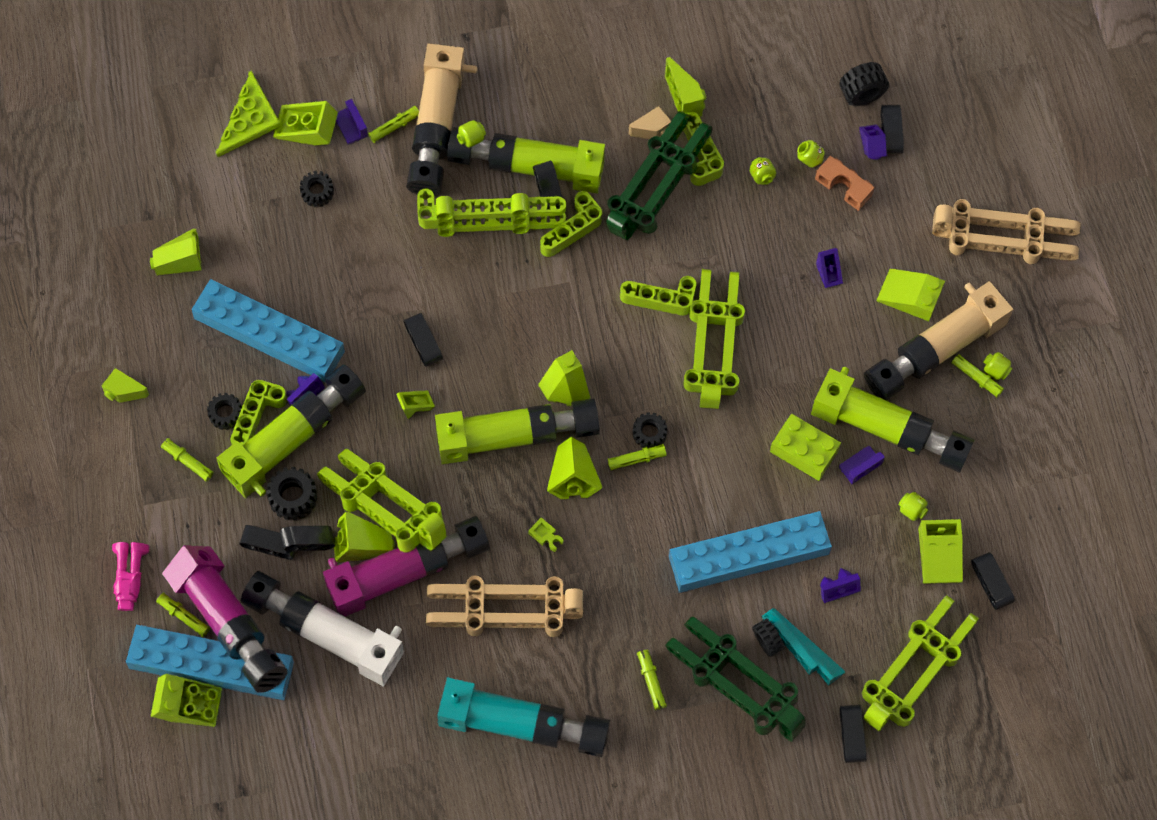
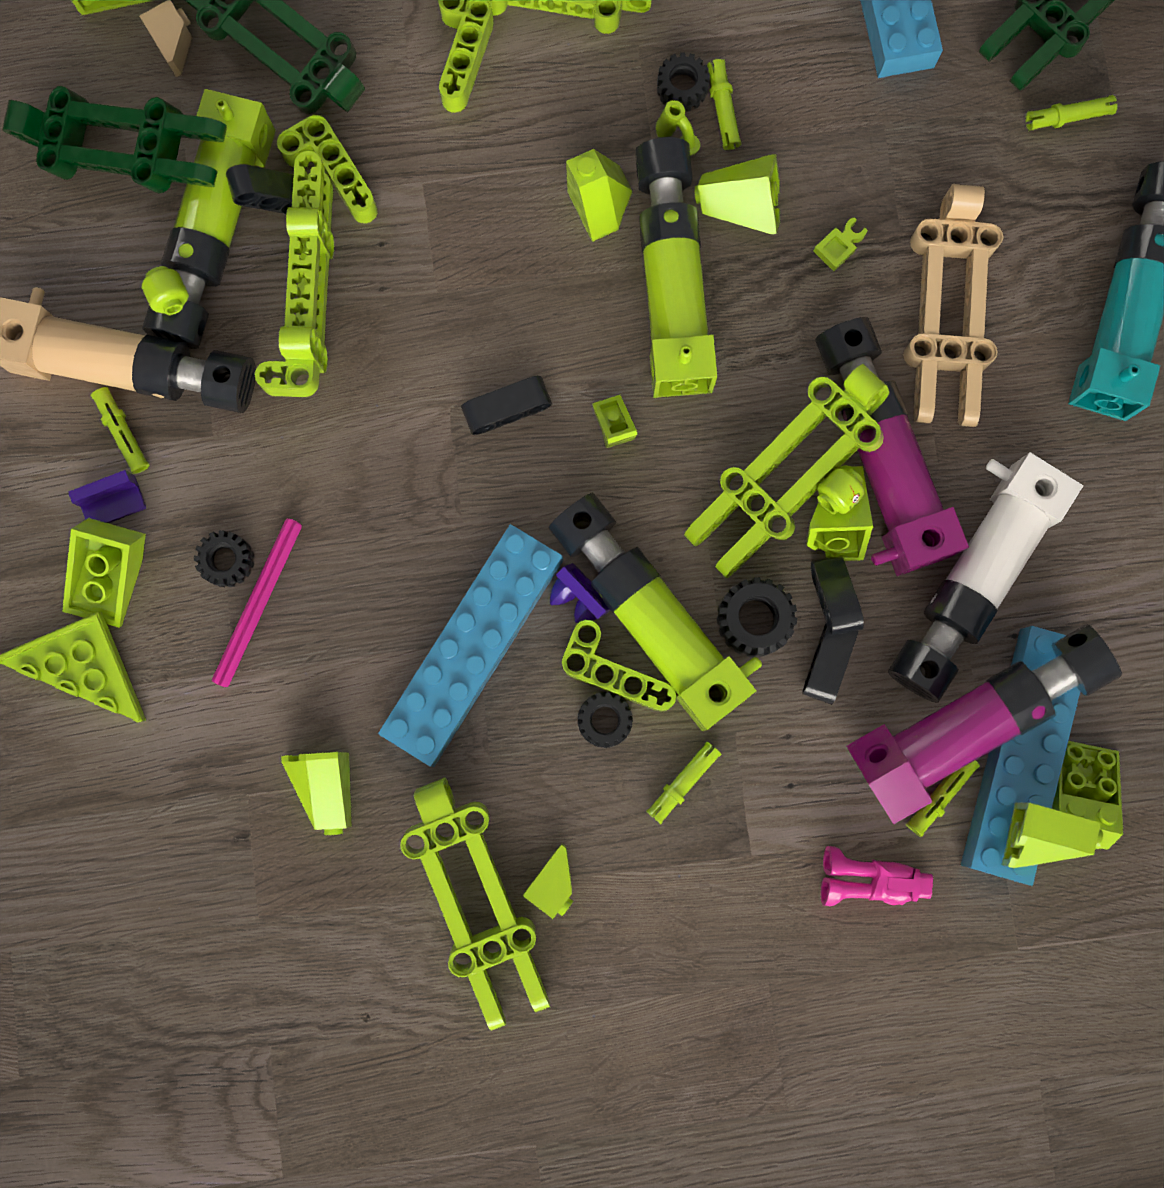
camera: 80 degrees left, 15 degrees up
(156, 656) = (1048, 835): none -> lime slope
(167, 315) = (436, 807): none -> lime beam
(291, 210) = (256, 603): none -> dark pink axle
(370, 527) = (840, 491): none -> lime head
(578, 122) = (159, 128): none -> dark green beam
(617, 421) = (673, 117): none -> lime plant

